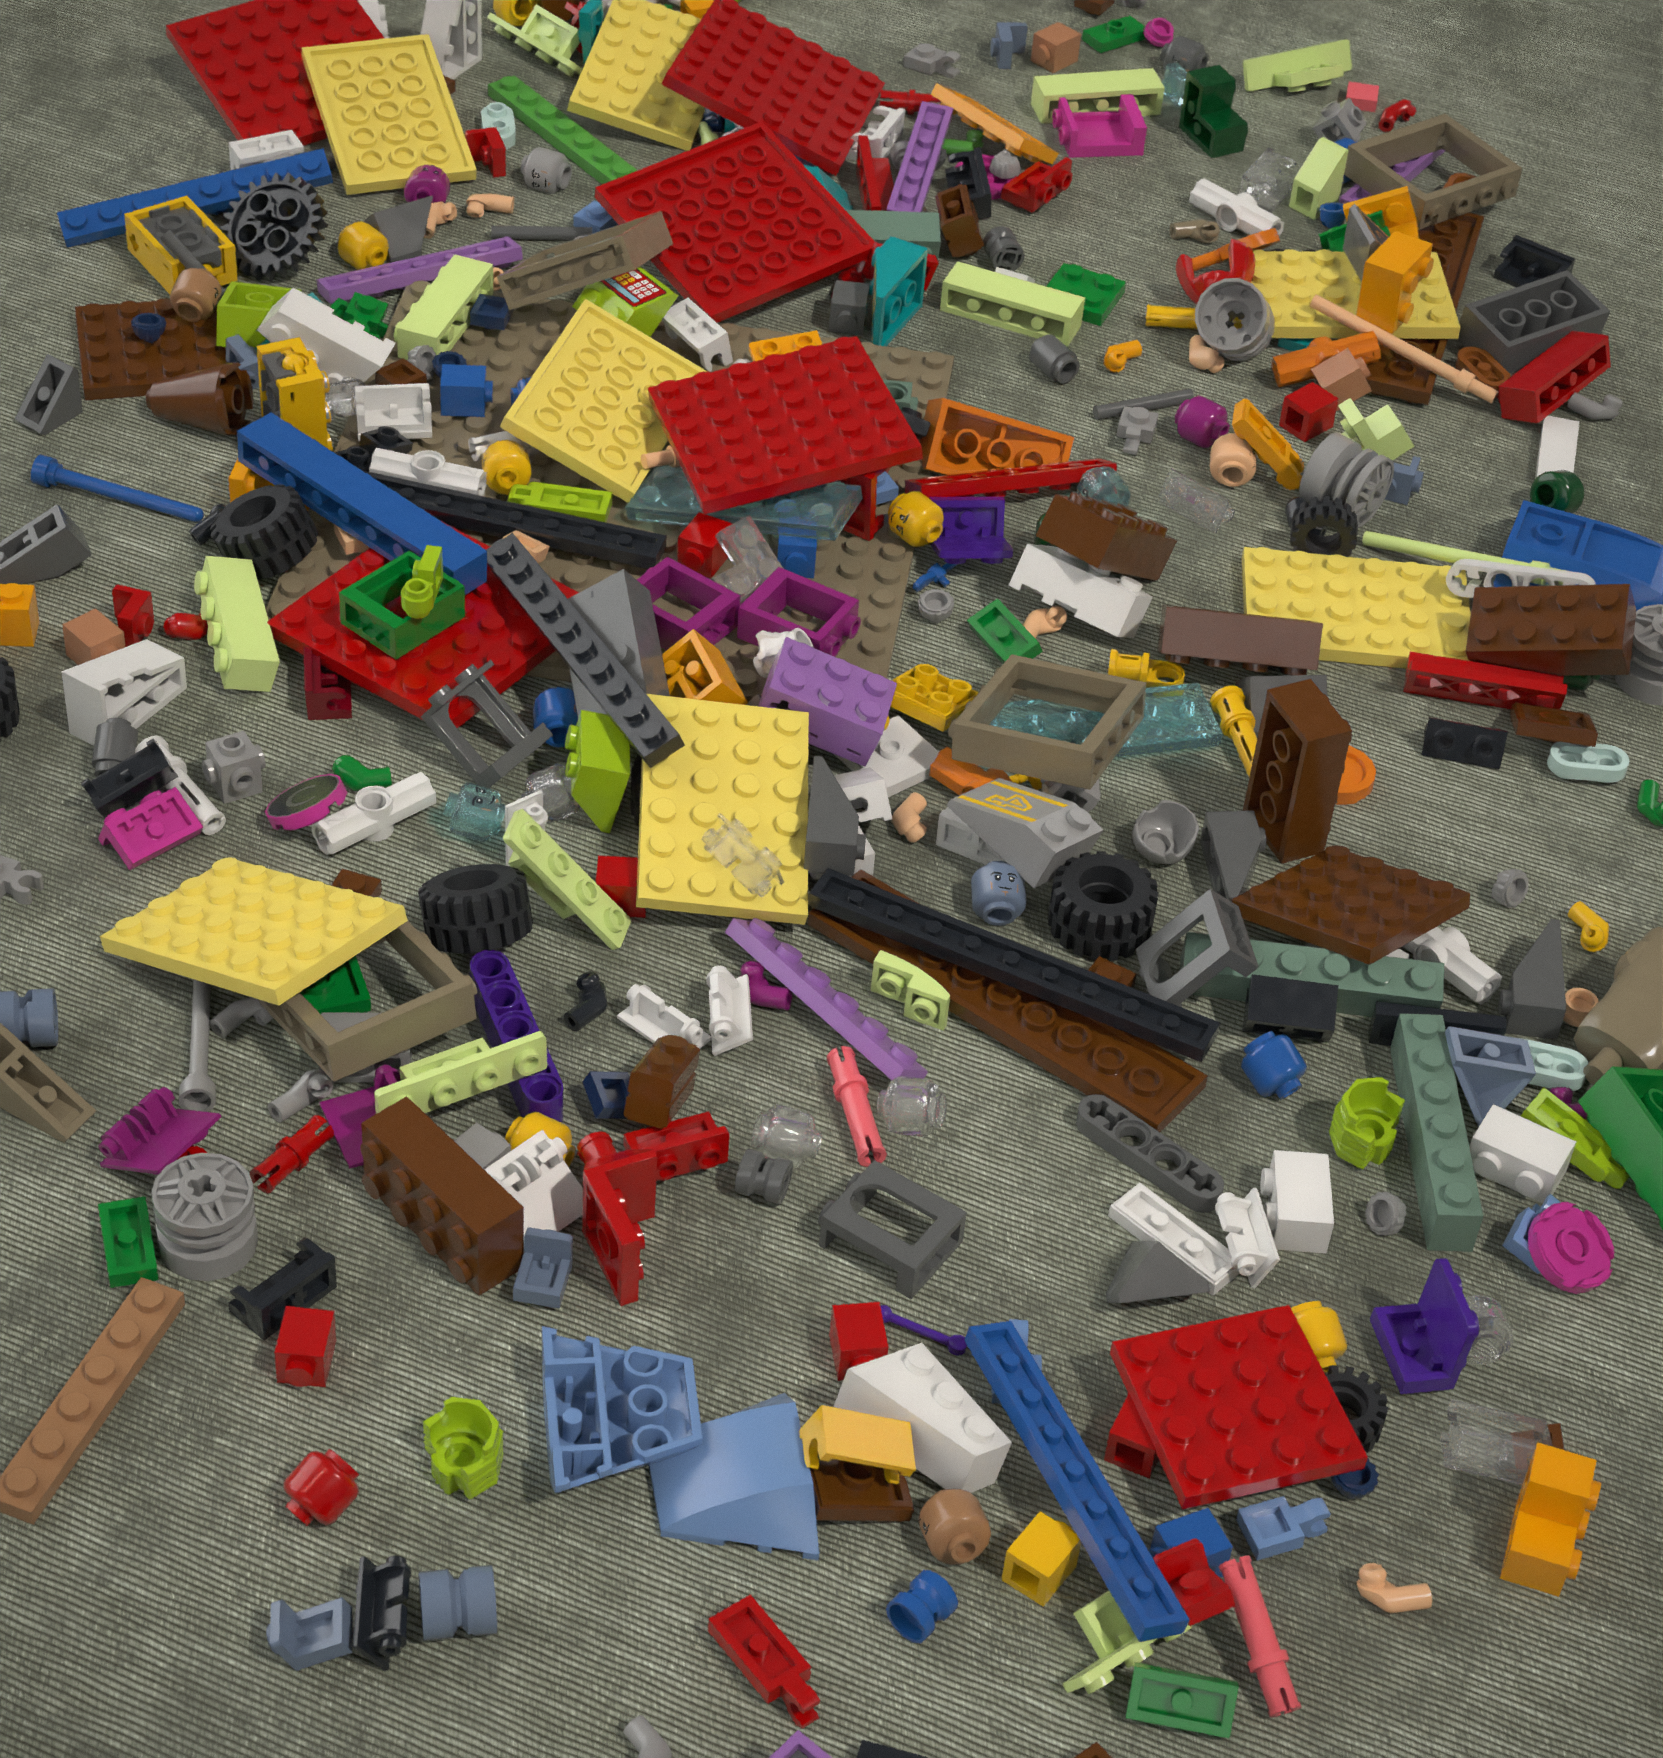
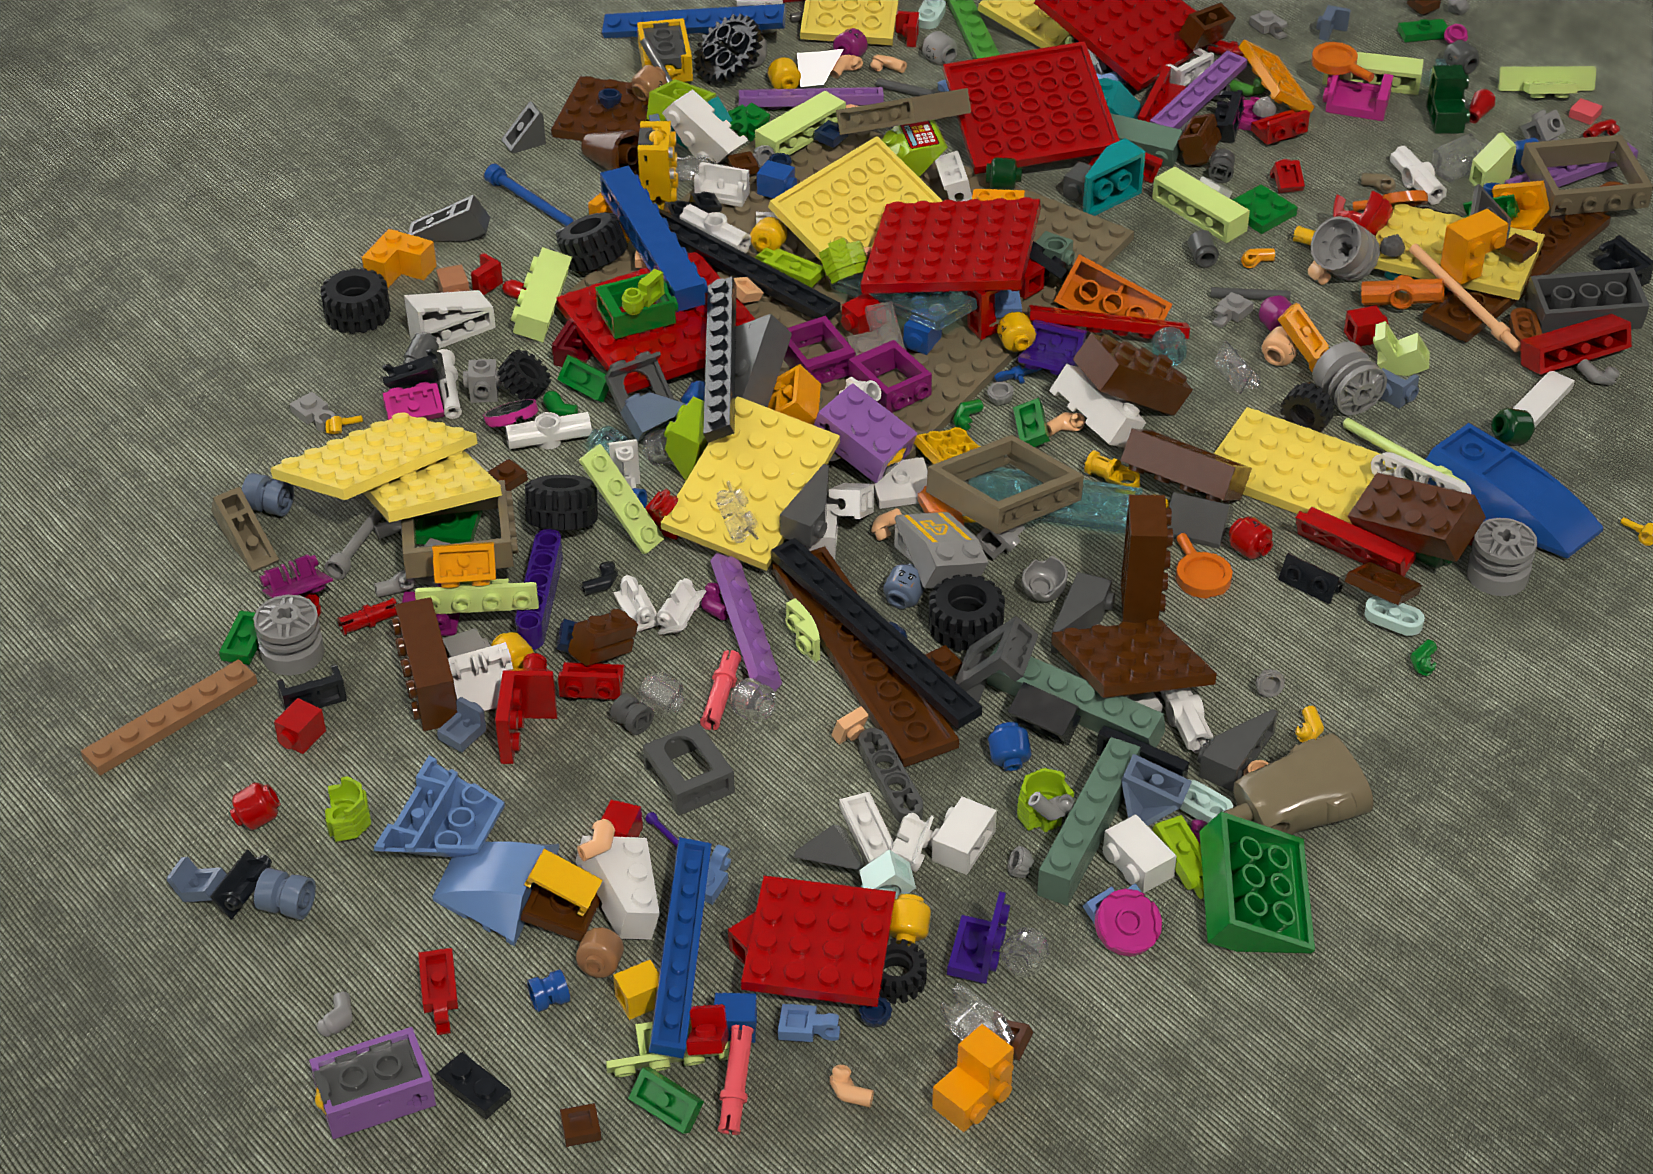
camera: 30 degrees right, 0 degrees up
(51, 888) = (334, 425): none -> yellow hand
(167, 918) = (373, 456): none -> light yellow plate
(294, 744) = (524, 375): none -> black tyre
(376, 726) = (584, 378): none -> green plate
(436, 1034) = (464, 563): none -> light orange bracket
(519, 751) = (649, 413): none -> sand blue slope
(629, 869) = (664, 503): none -> red bush
(641, 477) = (843, 259): none -> lime hair
(753, 317) = (1003, 173): none -> dark green head
(880, 75) = (1207, 26): none -> reddish brown brick
(885, 1364) = (601, 840): none -> light nougat arm
(908, 639) = (963, 412): none -> green arm
(1055, 47) = (1366, 31): nougat brick -> none
(1061, 88) = (1338, 59): none -> orange piece
(1061, 1102) = (850, 725): none -> light nougat plate
(1089, 244) = (1288, 176): none -> red bracket
(1249, 107) = (1481, 104): none -> red cone
(1253, 1287) = (888, 873): none -> light aqua brick
(1286, 304) = (1392, 246): none -> dark grey piece
(1343, 376) = (1404, 309): nougat brick -> none
(1367, 709) = (1251, 537): none -> red head
(1392, 1126) = (1052, 808): none -> light grey arm
(1438, 277) = (1519, 248): none -> reddish brown plate

